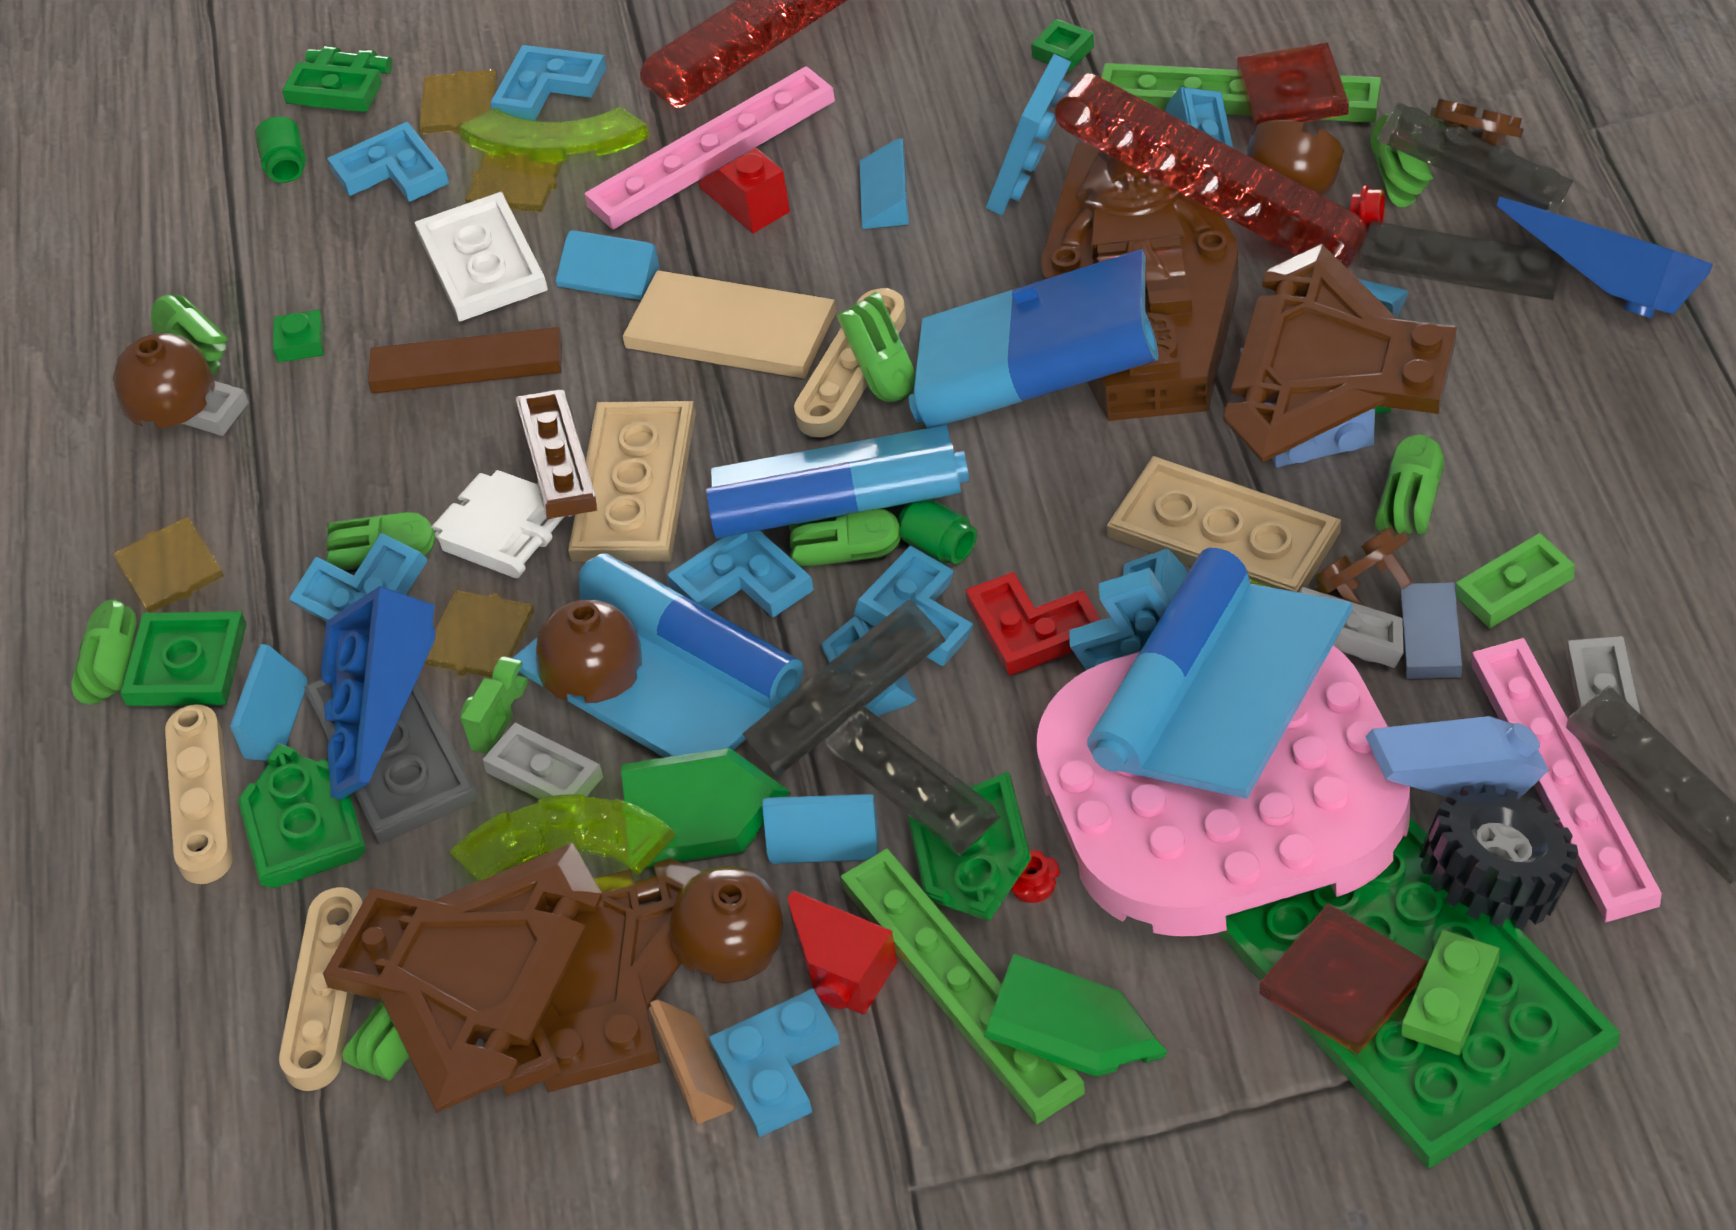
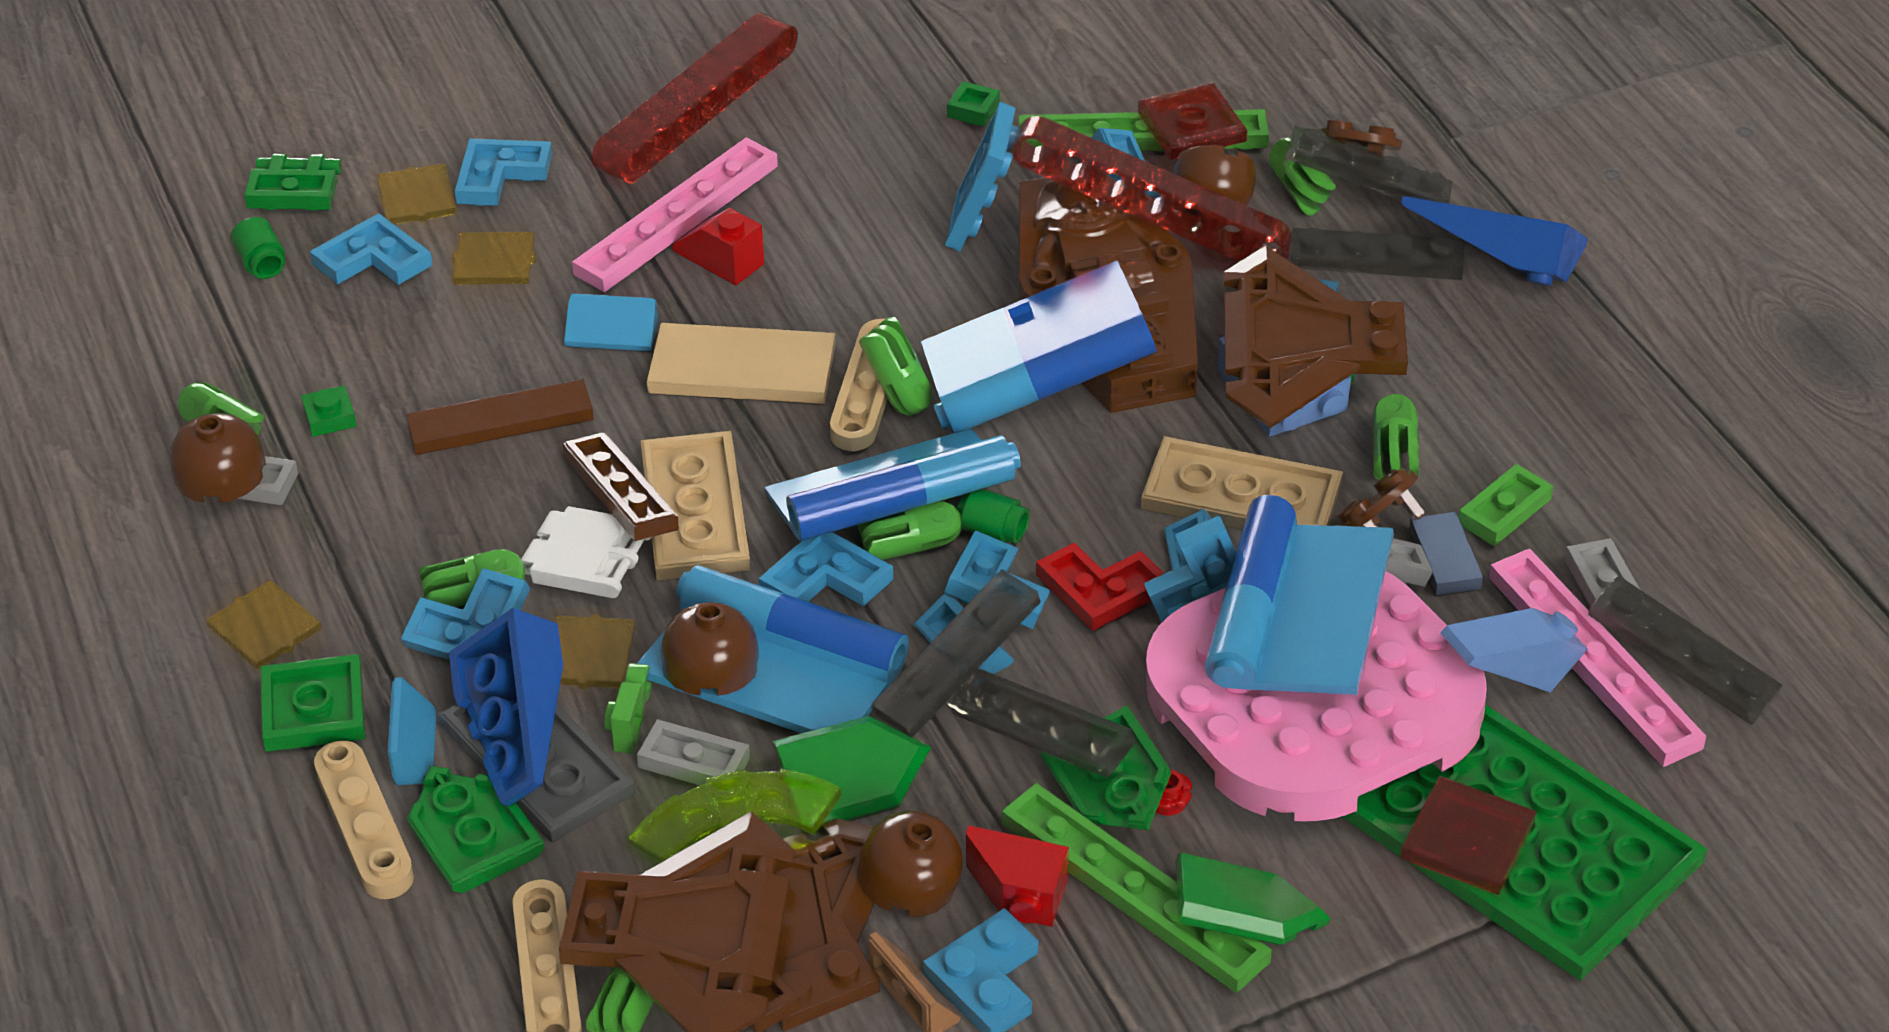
camera: 20 degrees left, 5 degrees down
(104, 652) = (232, 705): bright green arm -> none
(481, 256) = (487, 325): white plate -> none
(553, 141) = (521, 220): clear neon green tile -> none
(821, 828) = (968, 775): dark azure slope -> none
(884, 187) = (849, 234): dark azure slope -> none
(1369, 205) = (1286, 212): red plate -> none
(1450, 992) = (1561, 834): bright green plate -> none
(1498, 855) = (1568, 721): black wheel -> none

